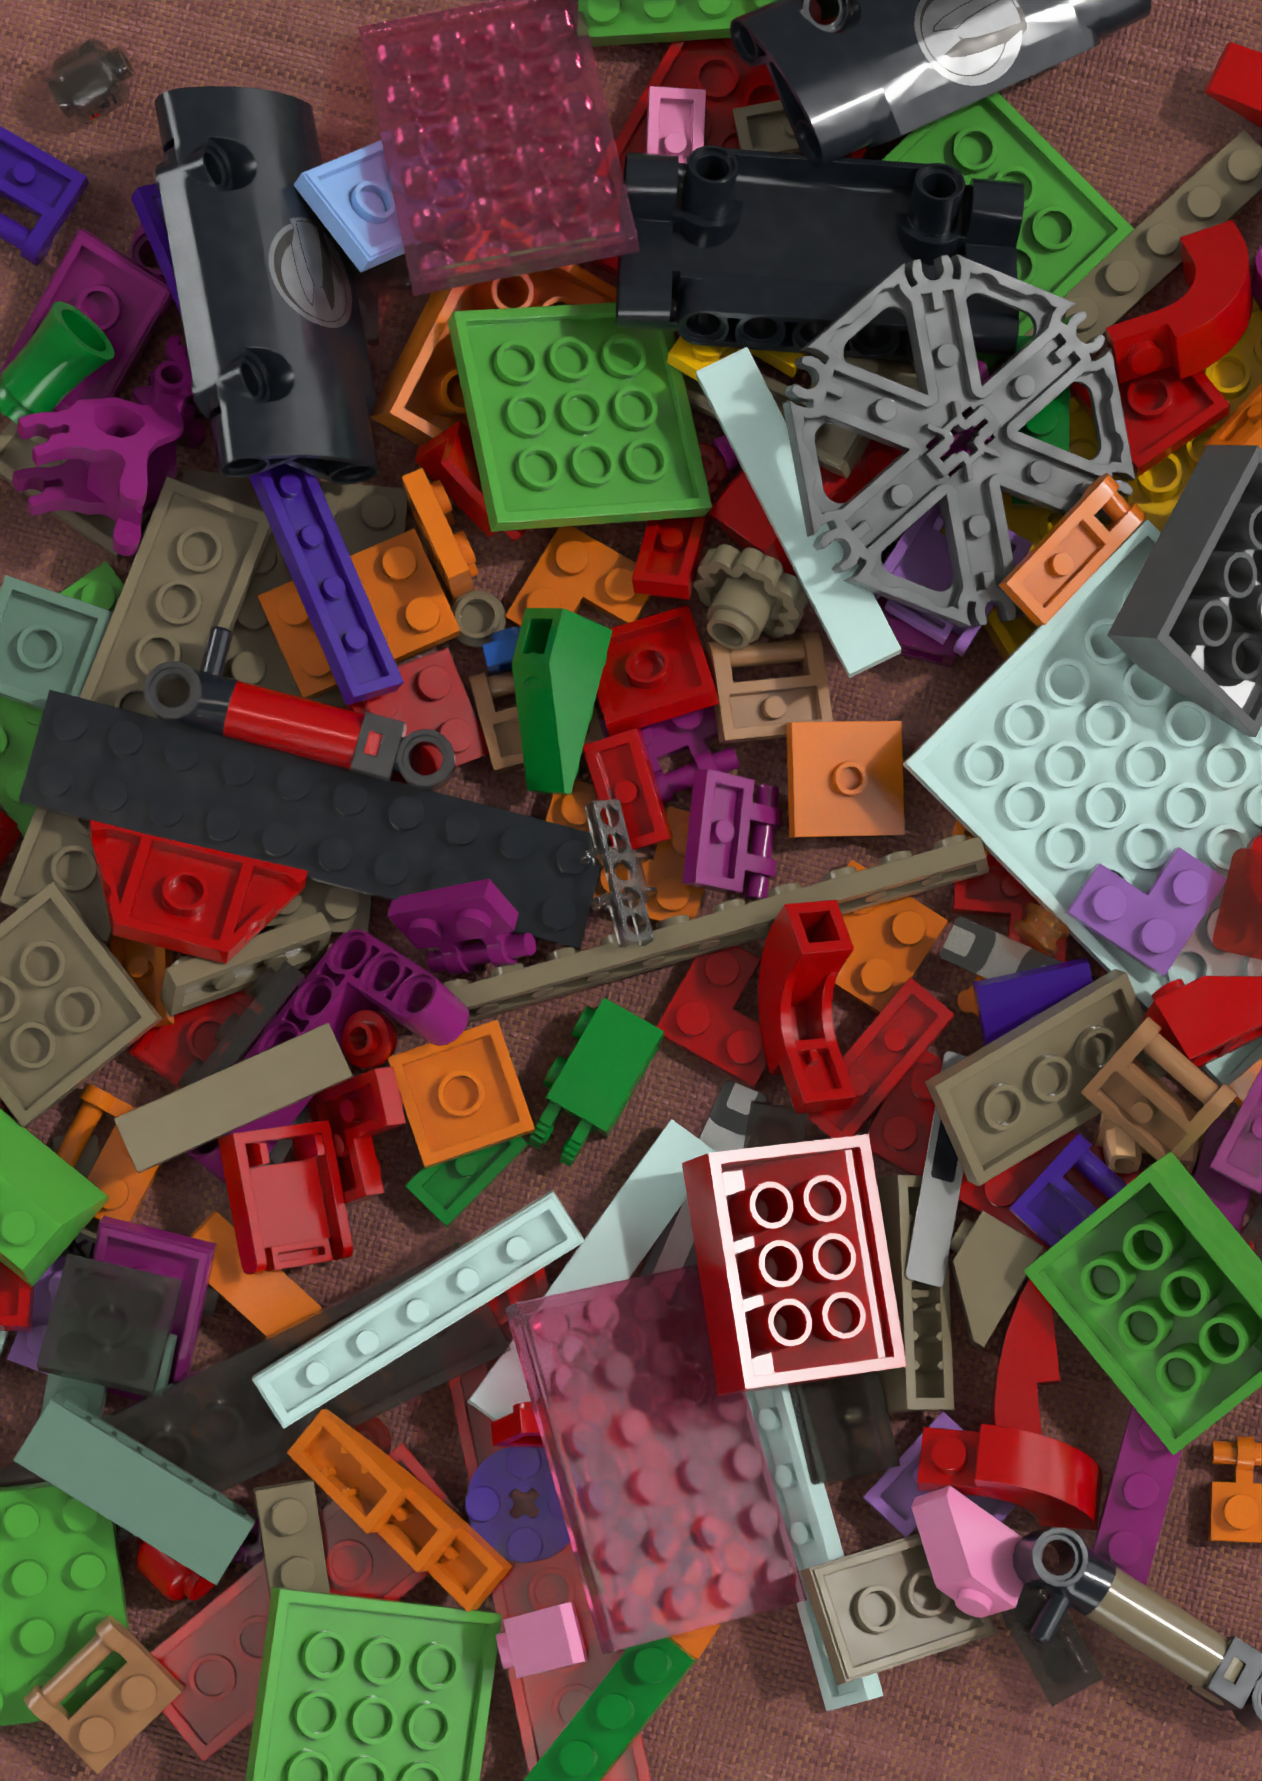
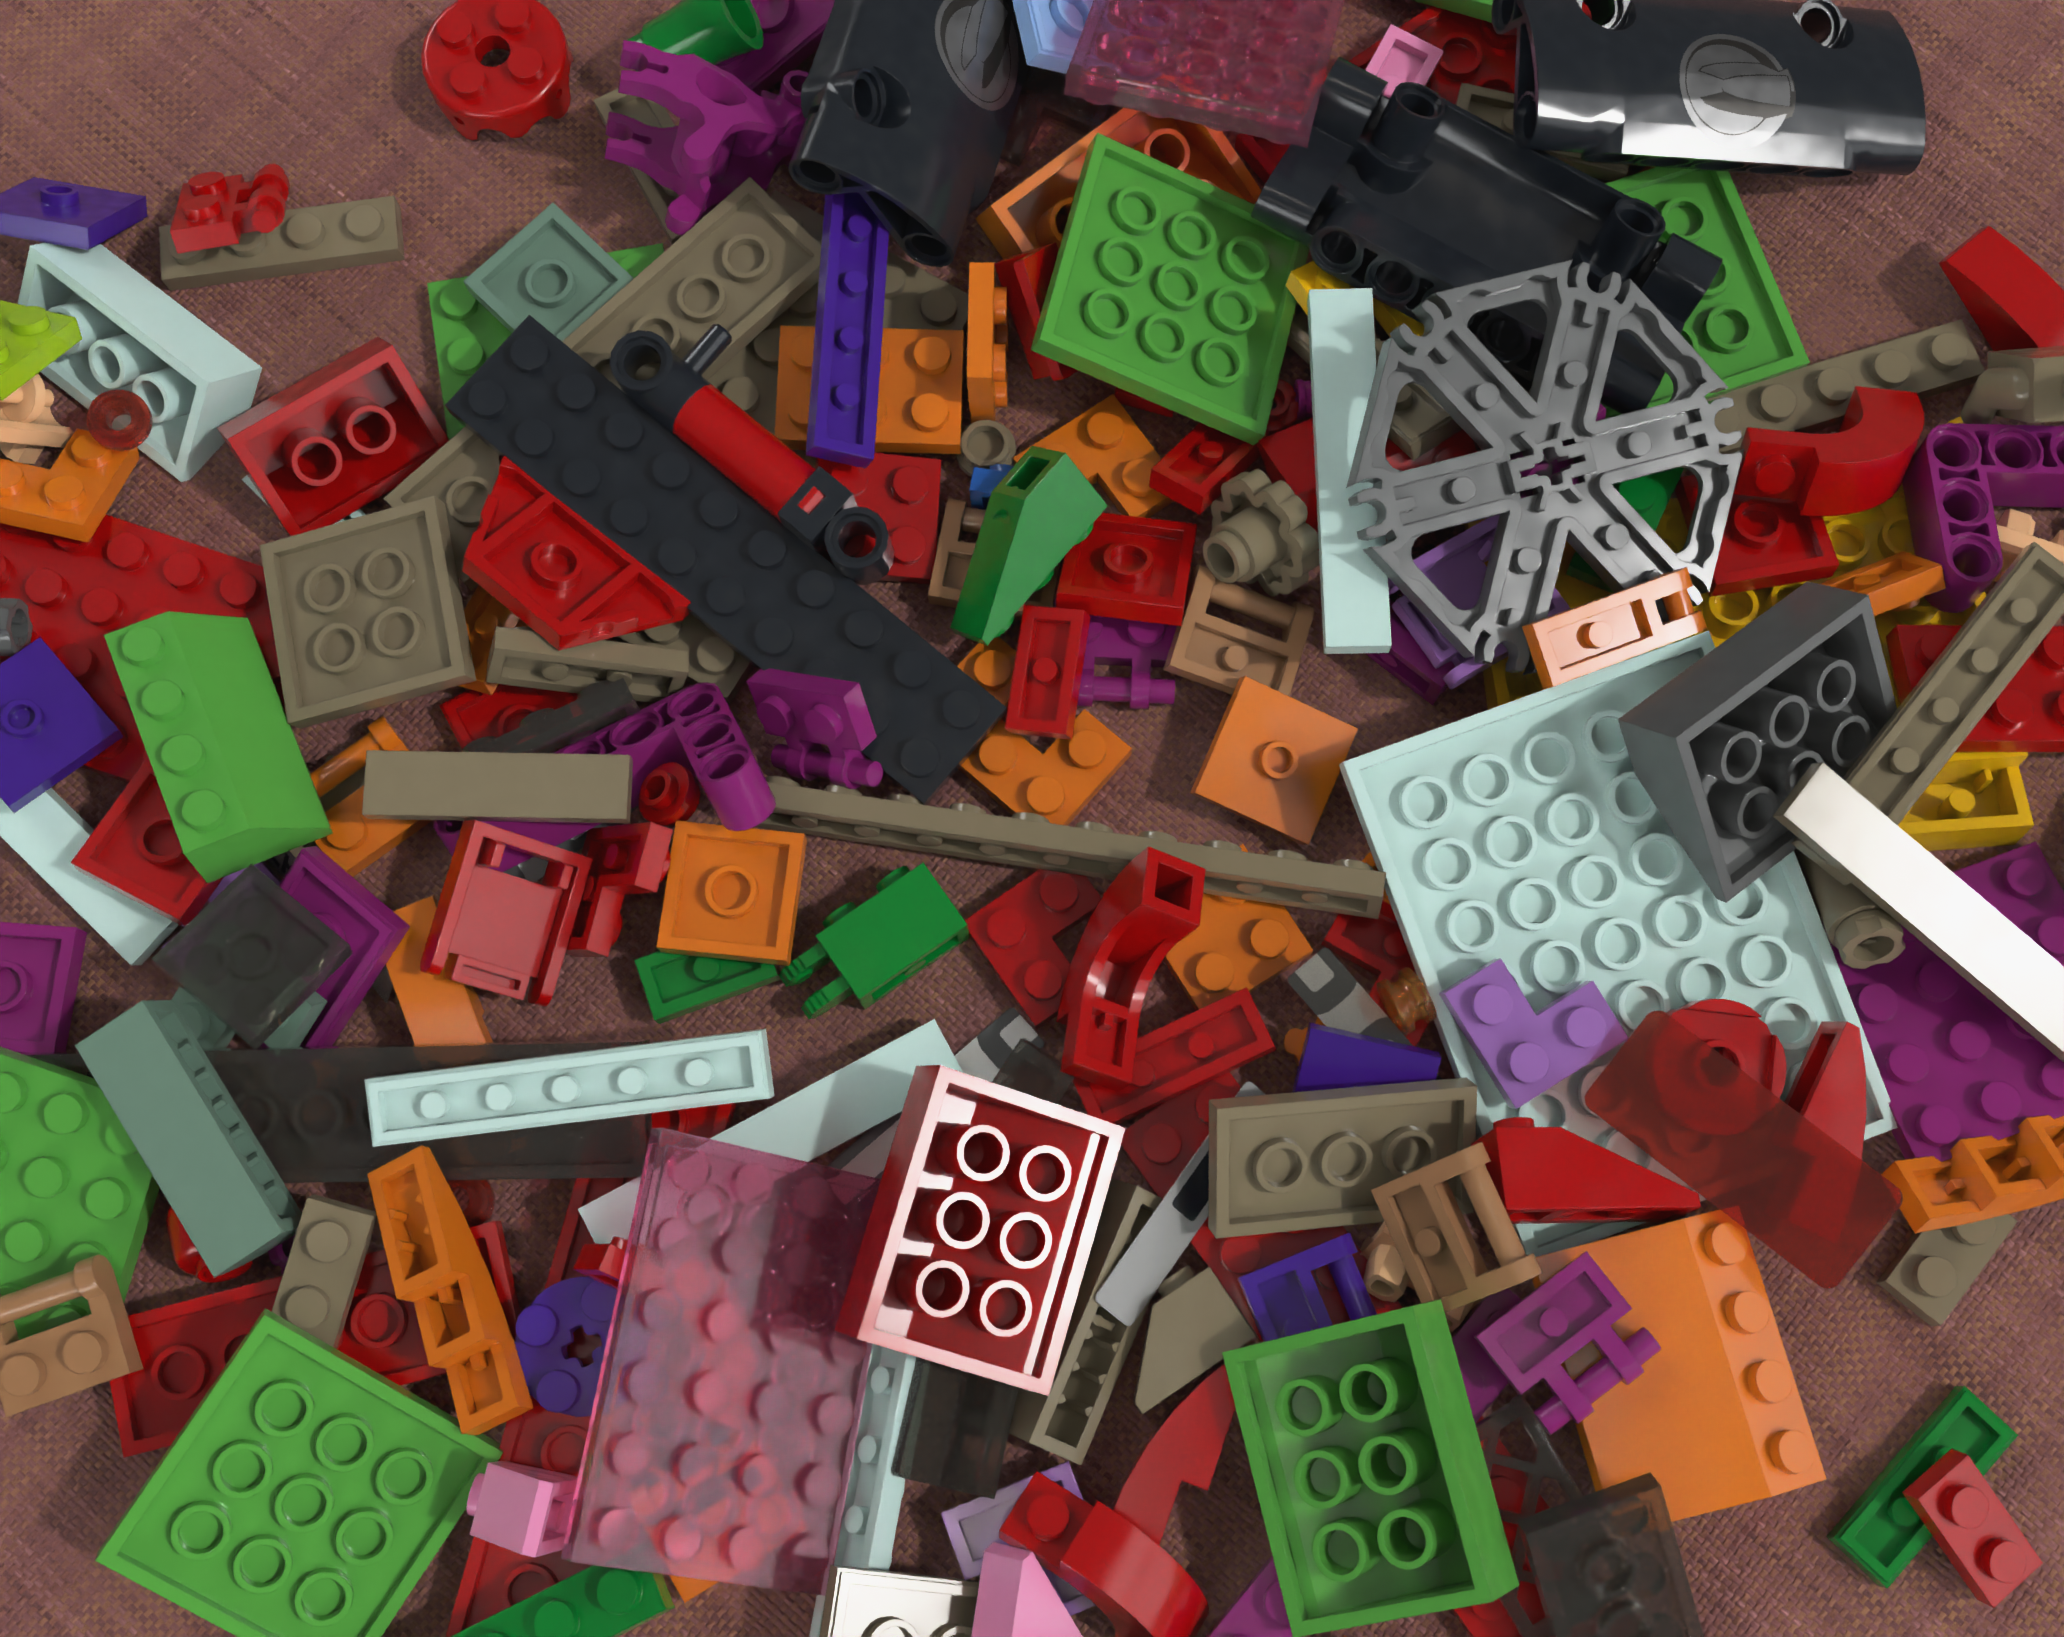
camera: 25 degrees right, 5 degrees down
(636, 894) = (1006, 729): clear smoke piece -> none
(720, 833) = (1121, 752): magenta plate -> none

